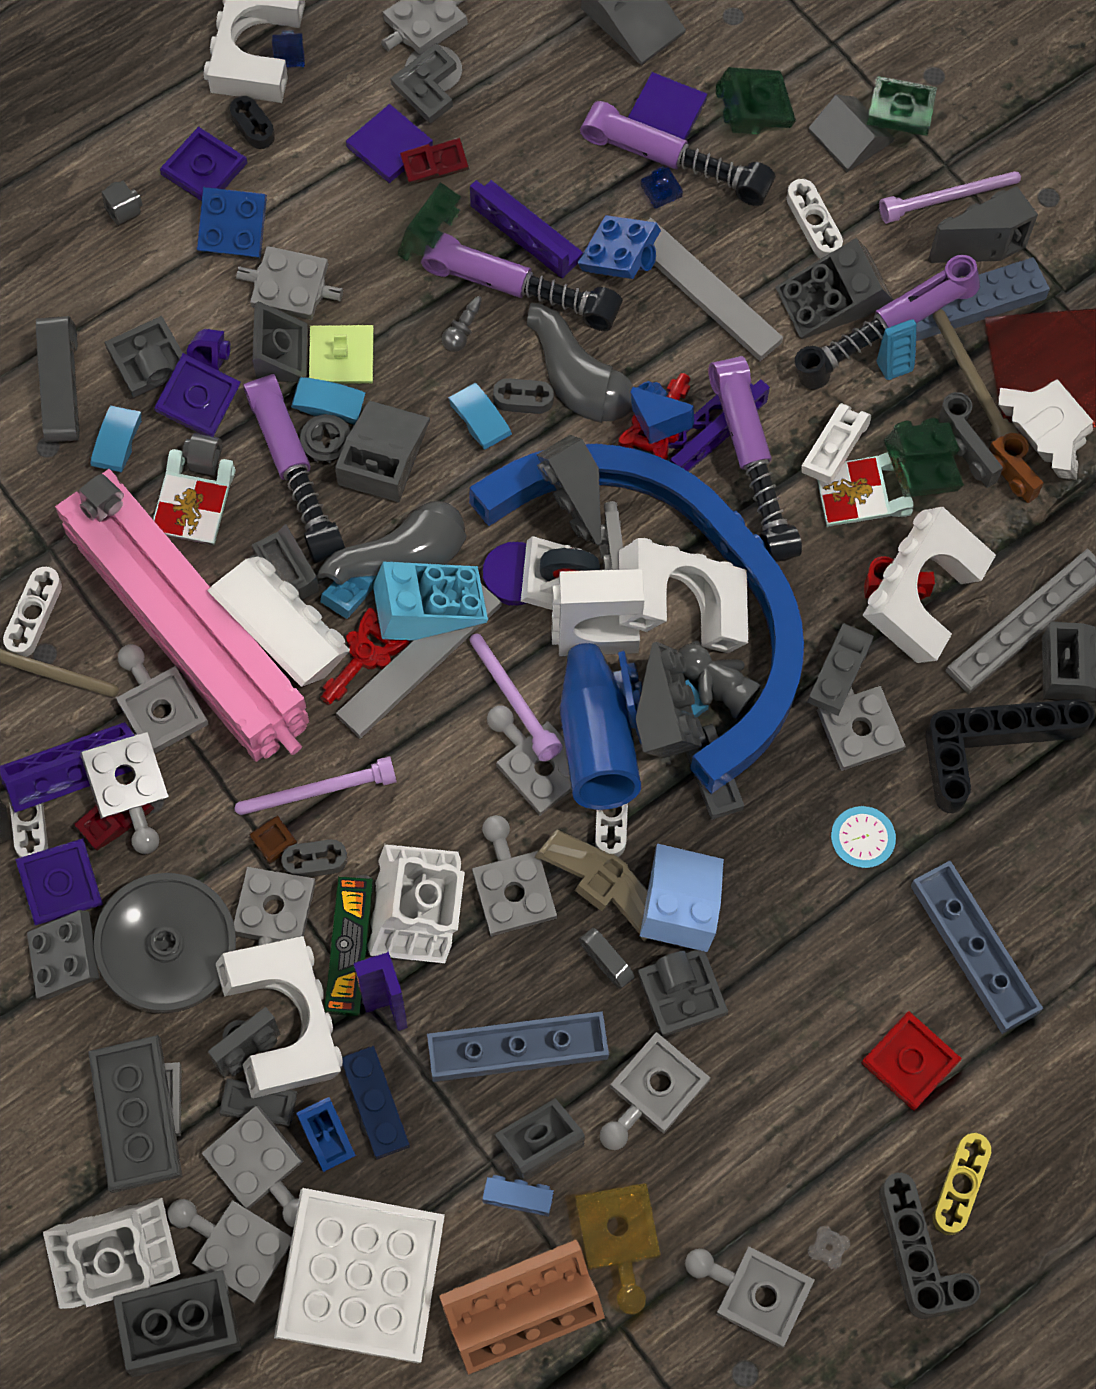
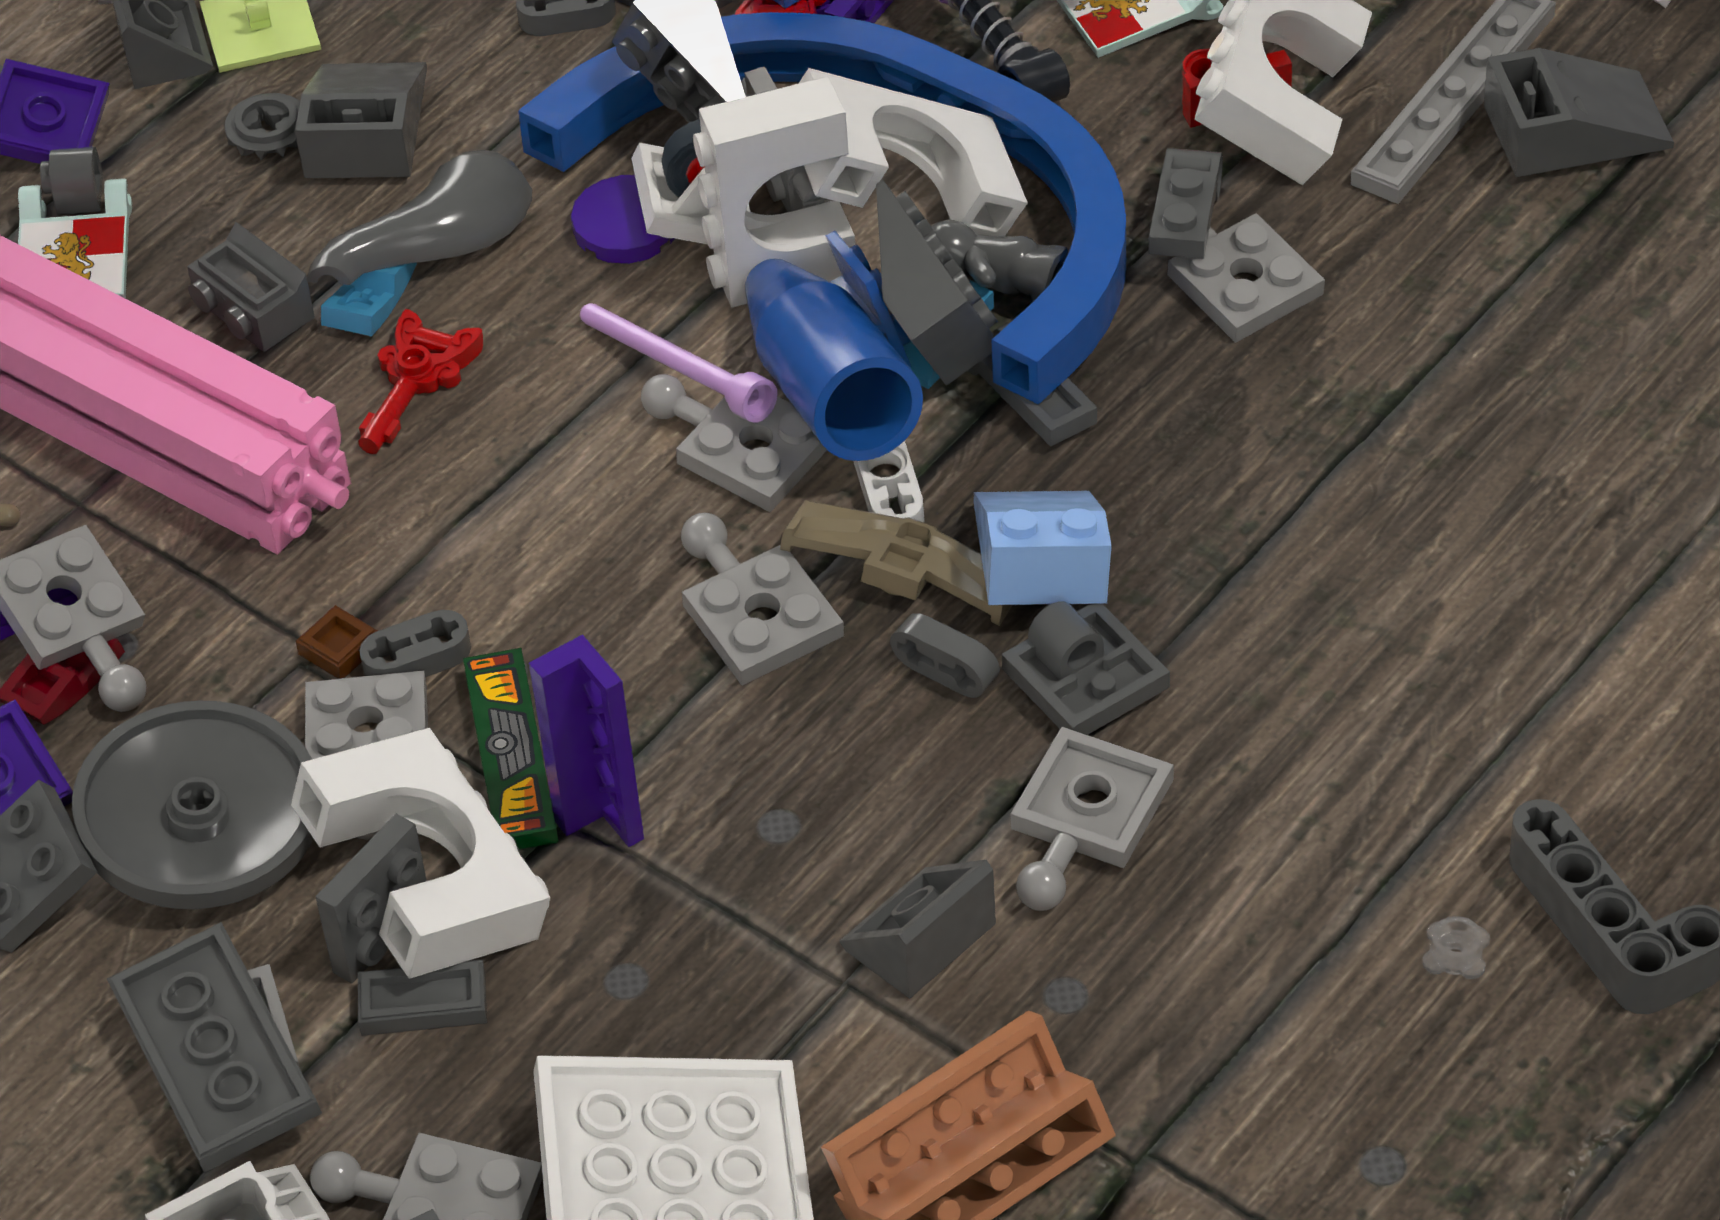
camera: 10 degrees left, 20 degrees down
(166, 689) = (100, 487): light grey plate -> none
(209, 348) = (48, 48): dark purple plate -> none
(255, 1160) = (441, 1069): light grey plate -> none
(280, 620) = (268, 333): white slope -> none
(292, 465) = (159, 98): piece -> none
(325, 397) = (246, 73): dark azure slope -> none
(325, 1134) = (547, 995): blue slope -> none
(375, 1102) = (623, 948): dark blue plate -> none
(380, 773) = (490, 509): lavender piece -> none
(404, 674) = (504, 360): light grey tile -> none
(416, 903) = (630, 626): white slope -> none
(427, 599) = (491, 270): medium azure slope -> none
(480, 415) = (508, 41): dark azure slope -> none
(517, 1046) = (837, 806): sand blue piece -> none
(518, 1195) = (909, 1010): medium blue piece -> none
(635, 1245) = (1131, 1023): clear yellow plate -> none
(740, 1303) = (1344, 1012): light grey plate -> none
(863, 837) = (1302, 414): sticker -> none
(911, 1060) = (1492, 673): red tile -> none
(976, 947) = (1538, 498): sand blue piece -> none
(980, 1162) = (1653, 791): light yellow beam -> none
(994, 734) = (1403, 238): black beam -> none

